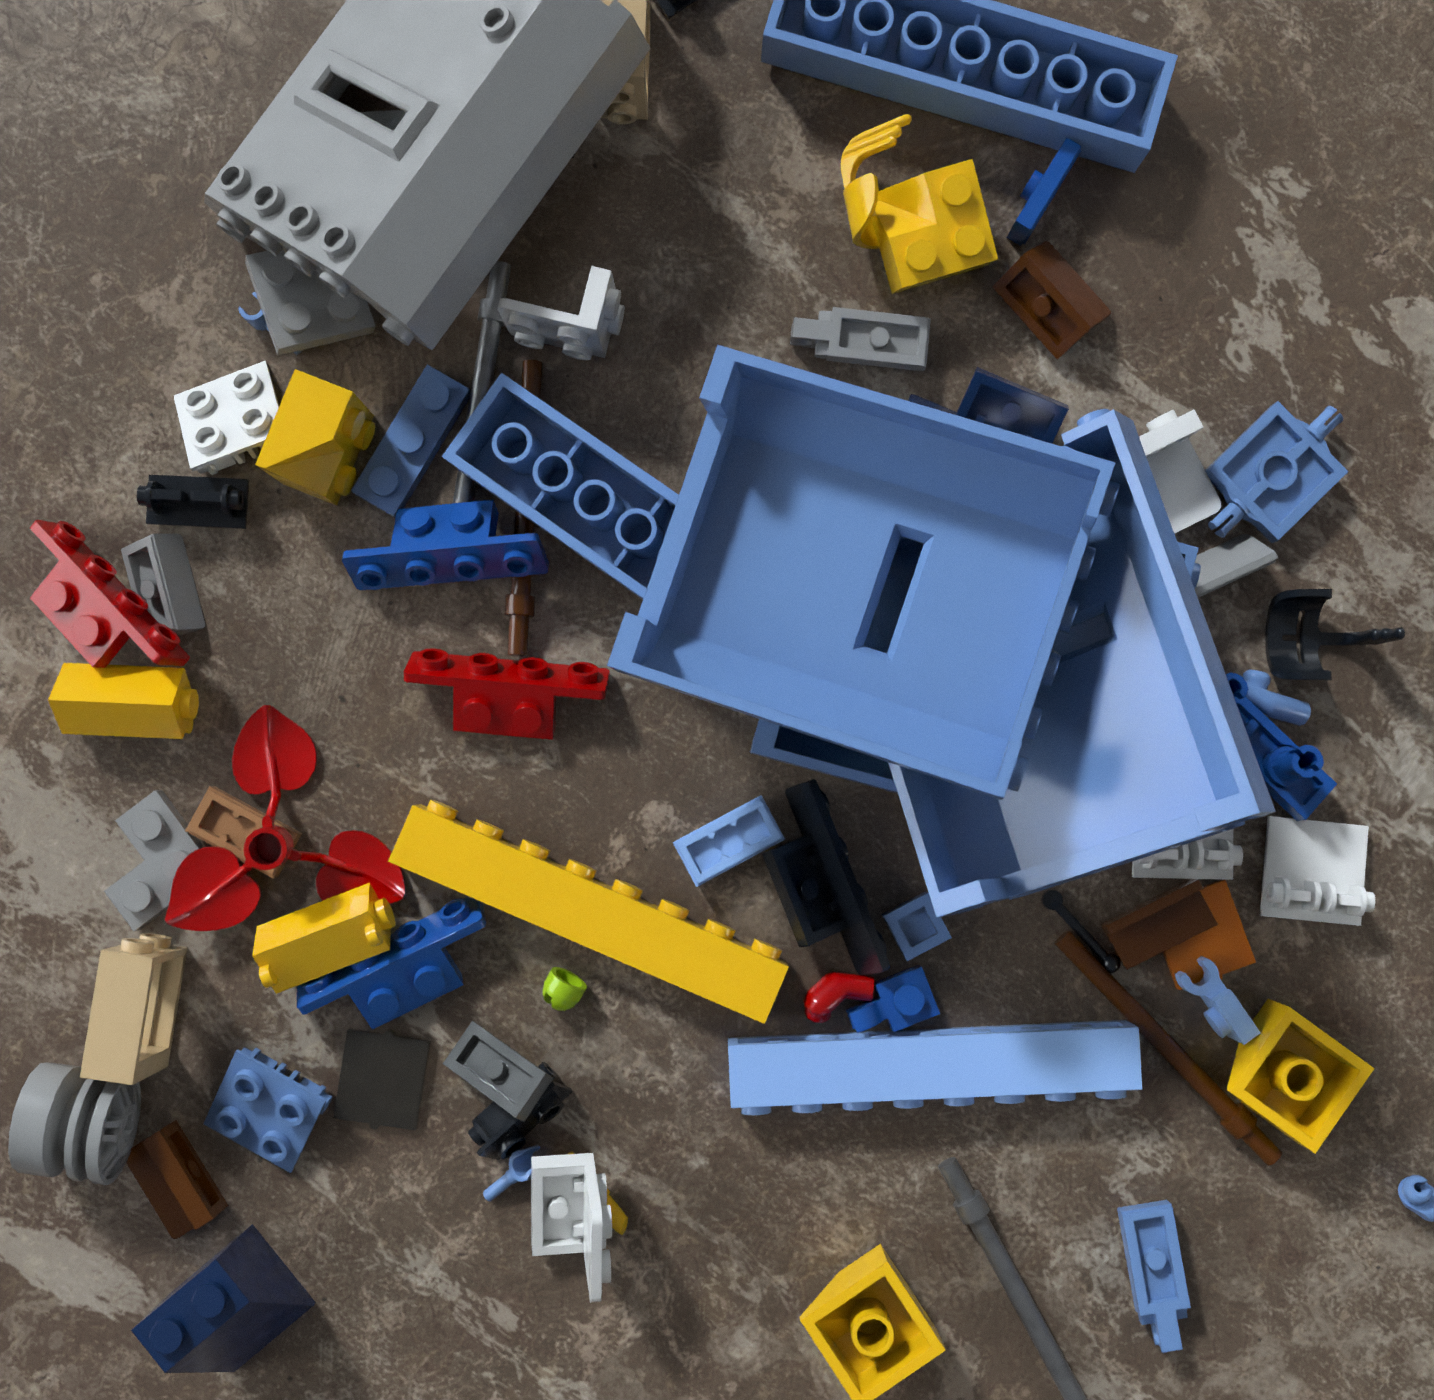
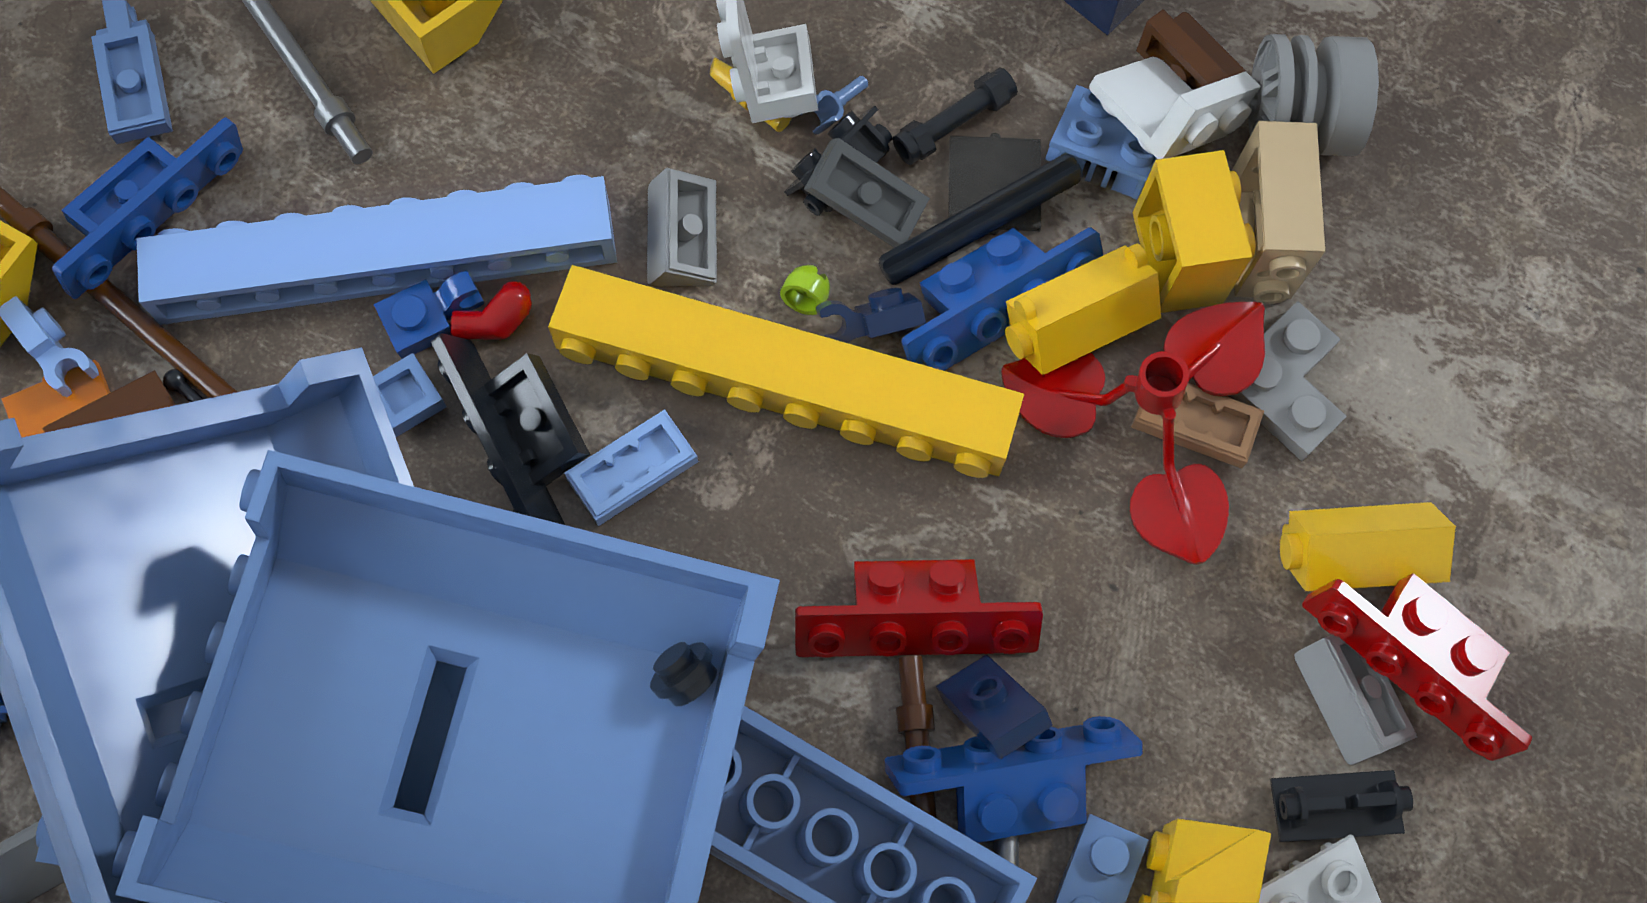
camera: 175 degrees right, 15 degrees down
(211, 999) = (1194, 229): none -> yellow slope
(212, 1125) = (1169, 114): none -> white bracket
(369, 1169) = (991, 92): none -> black bar
(398, 1039) = (980, 219): none -> black axle
(455, 601) = (994, 706): none -> dark blue plate
(503, 952) = (885, 313): none -> dark blue plate
(667, 1061) = (681, 230): none -> light grey slope
(693, 618) = (683, 673): none -> black plate
(1146, 1136) = (137, 199): none -> blue bracket

